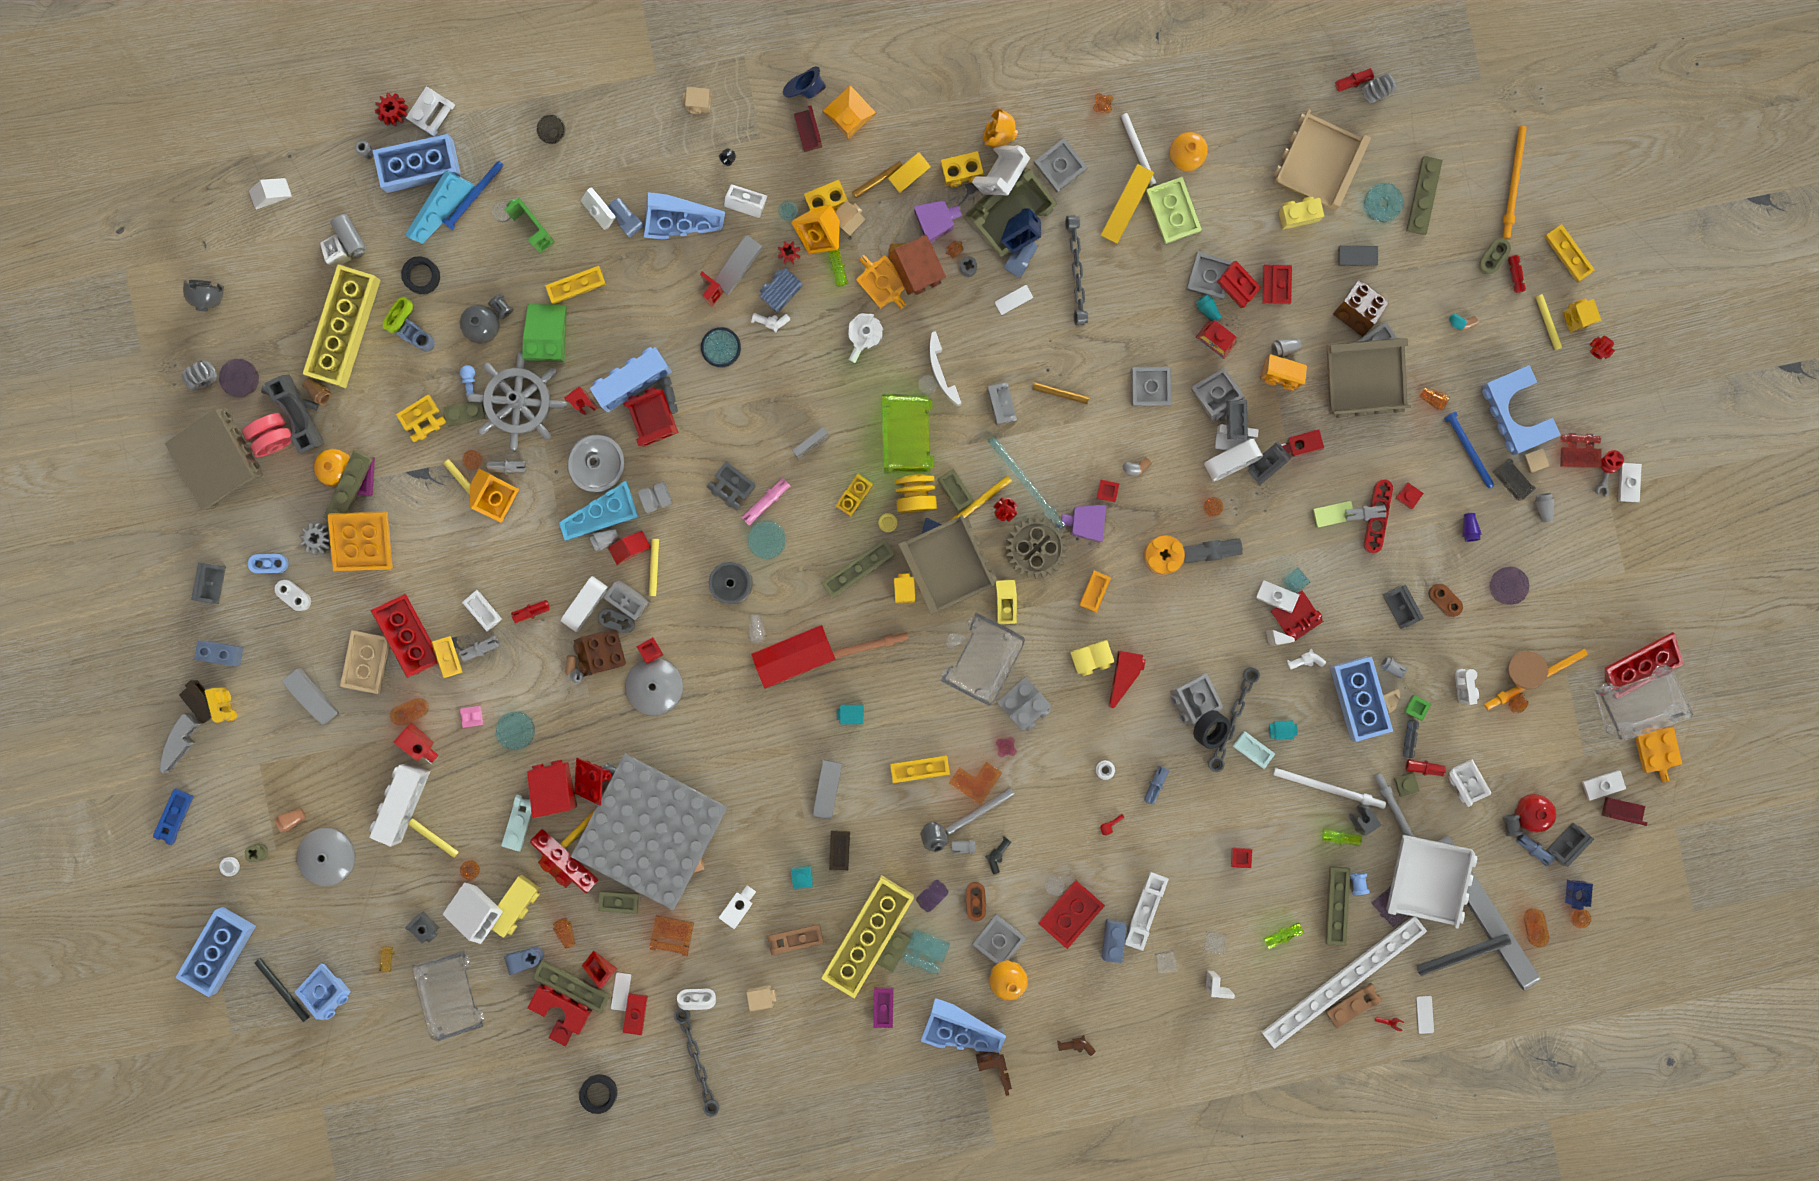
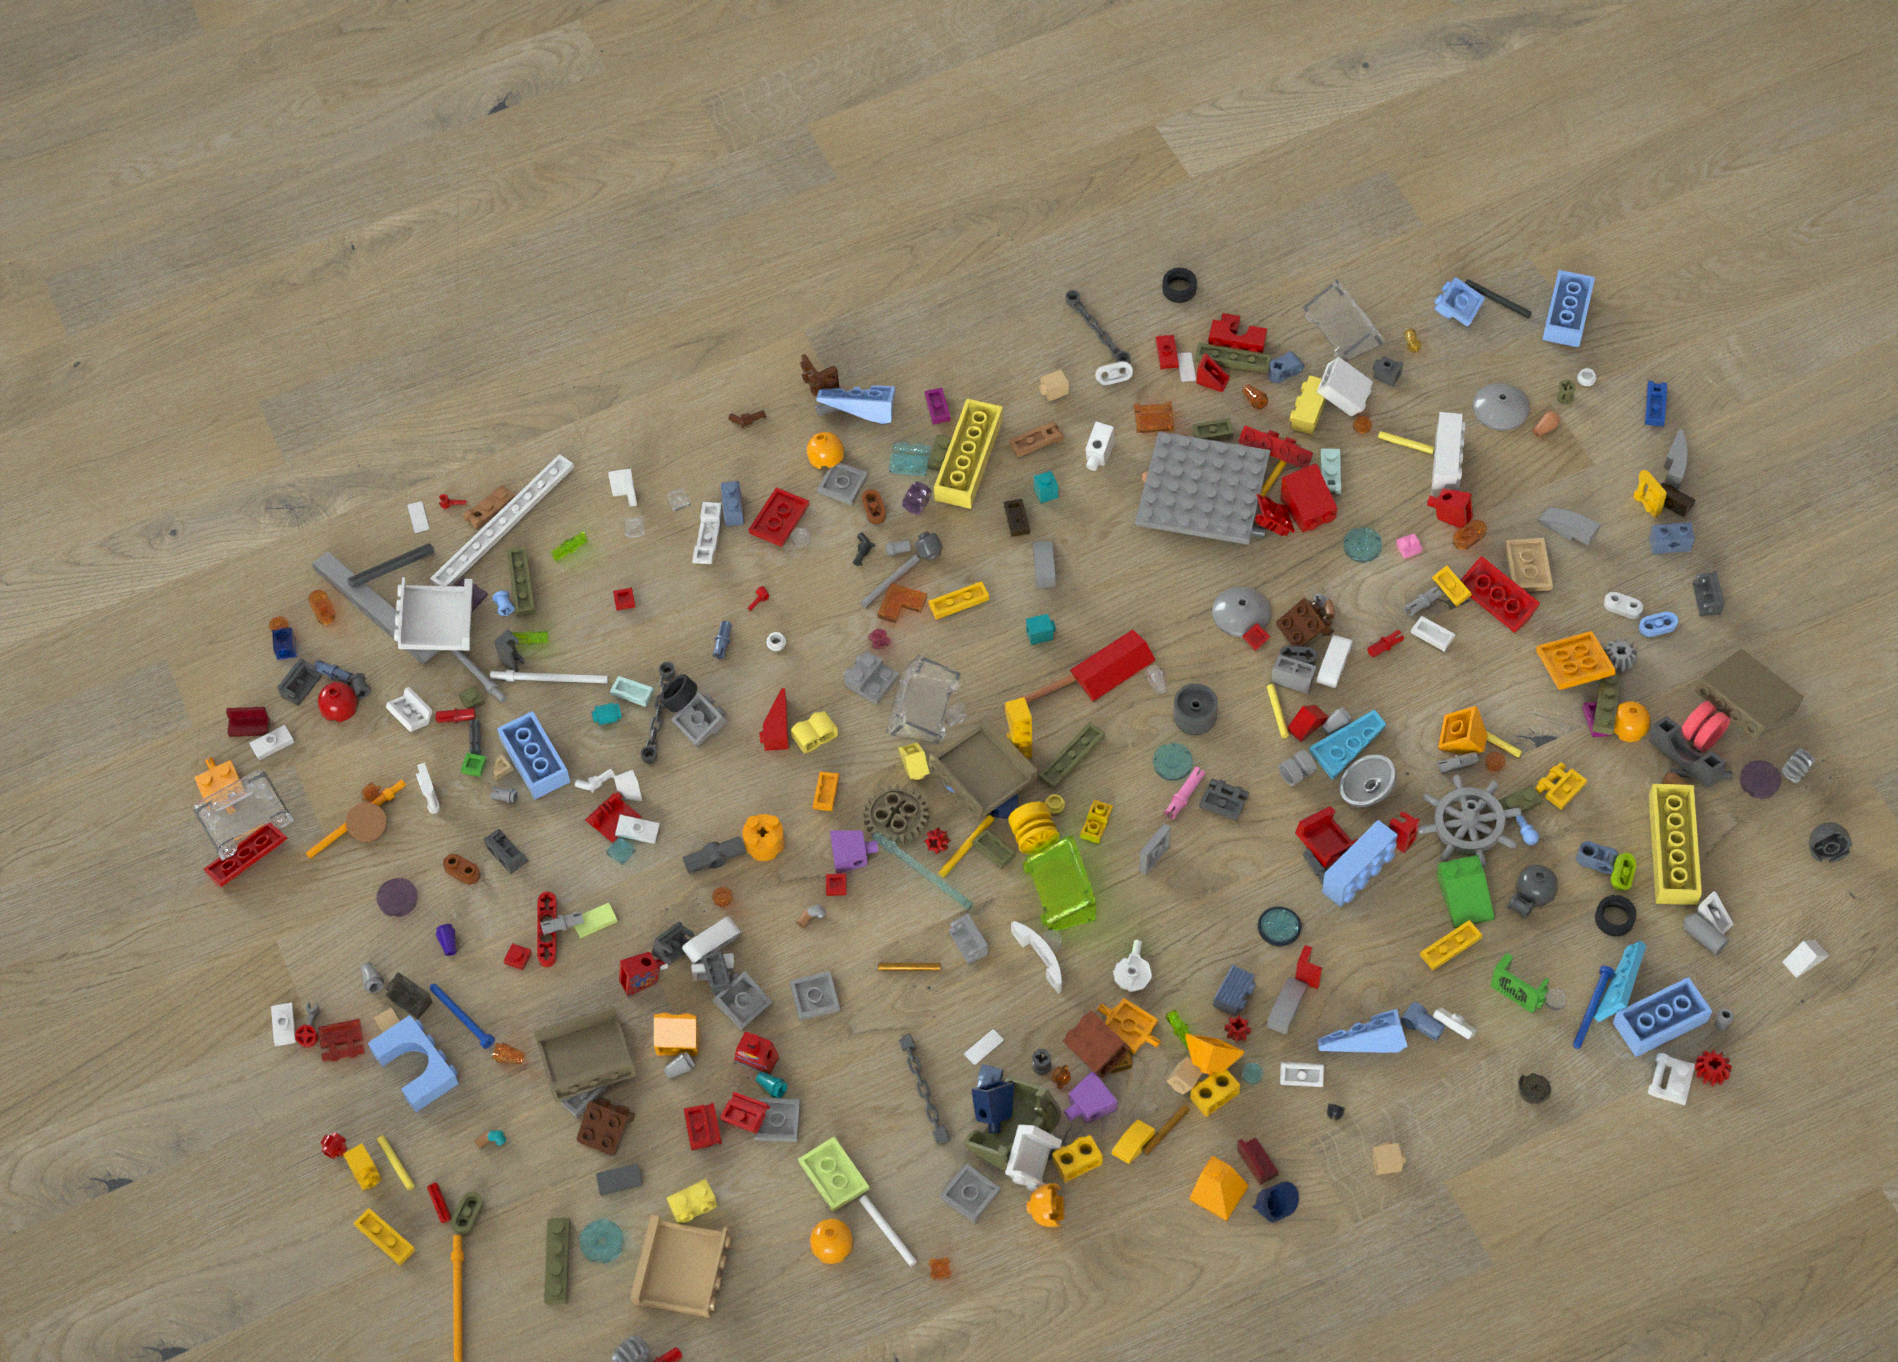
camera: 170 degrees right, 30 degrees down
(771, 322) = (1235, 959): white piece -> none
(1127, 203) = (885, 1167): yellow slope -> none

